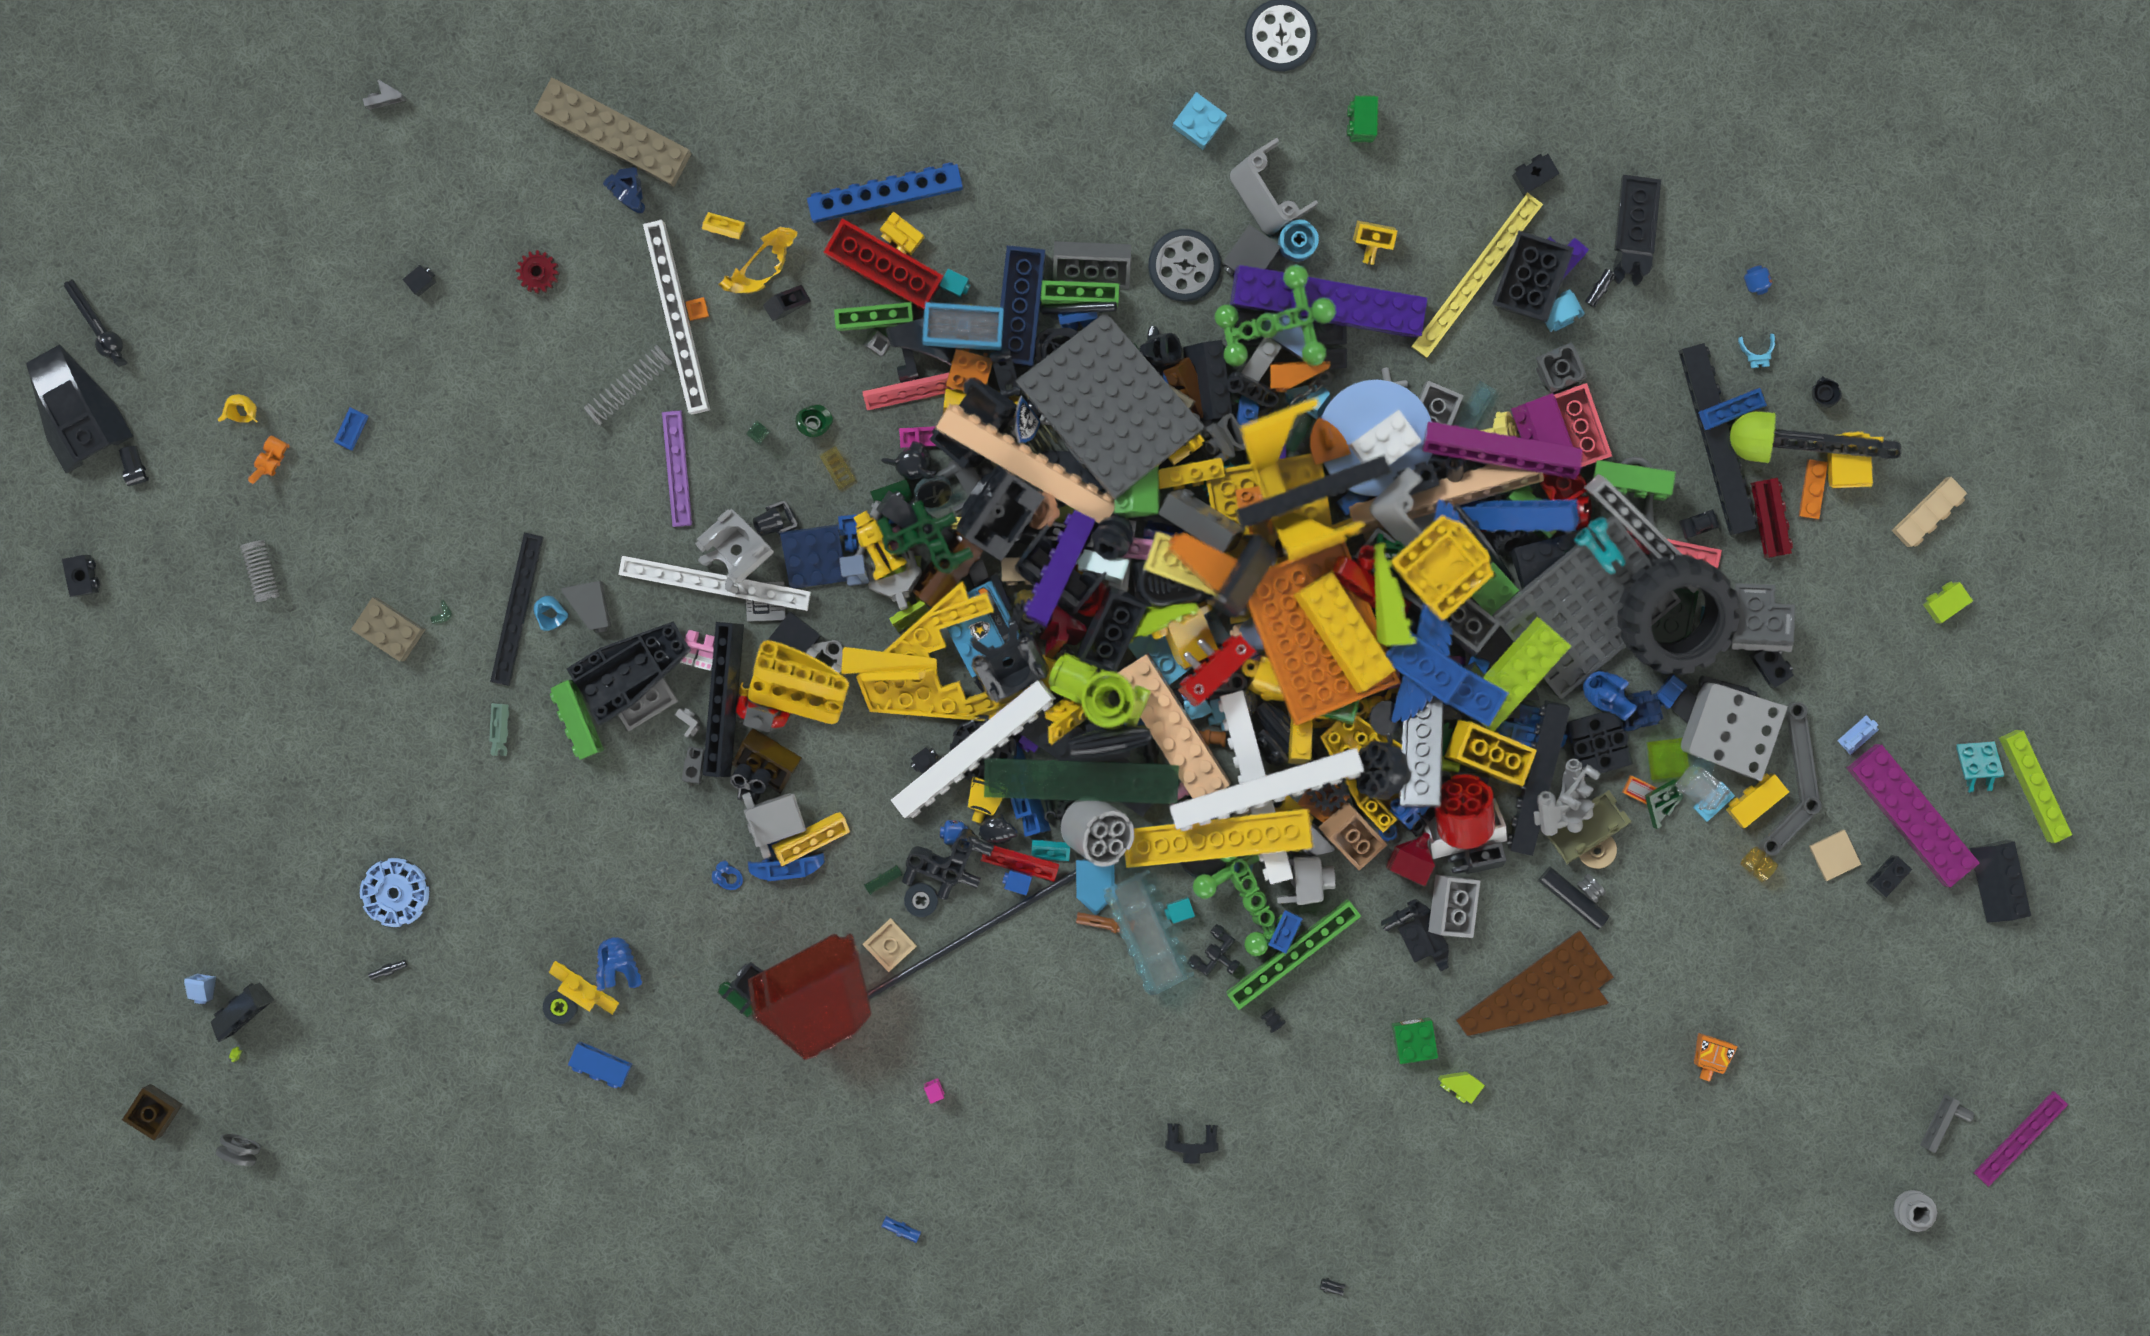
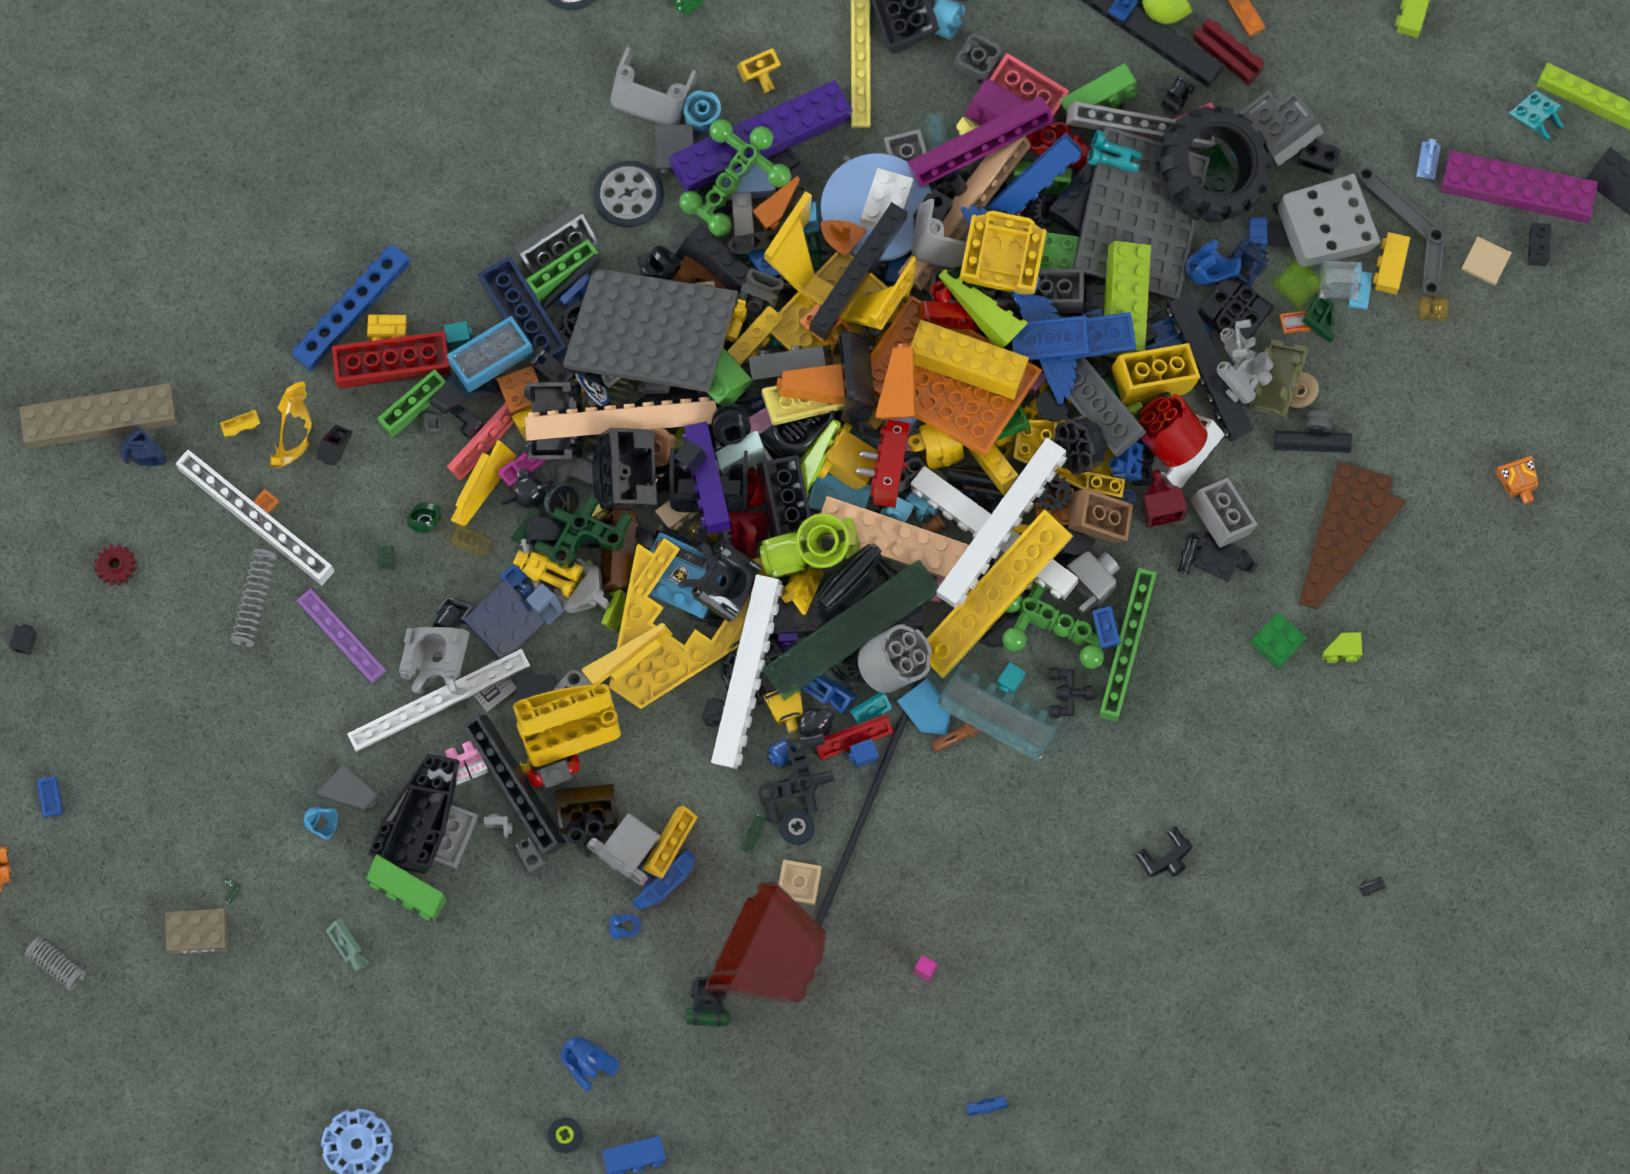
camera: 30 degrees left, 15 degrees down
(516, 609) = (291, 841): black tile -> none
(580, 990) = (573, 1104): yellow bracket -> none
(881, 426) = (481, 482): none -> yellow wedge
(1056, 544) = (689, 457): none -> black brick
(1199, 121) = (557, 80): medium azure brick -> none
(1266, 621) = (899, 387): none -> orange slope
(1273, 1020) = (1153, 710): black bush -> none
(1479, 859) = (1214, 463): black hinge -> none

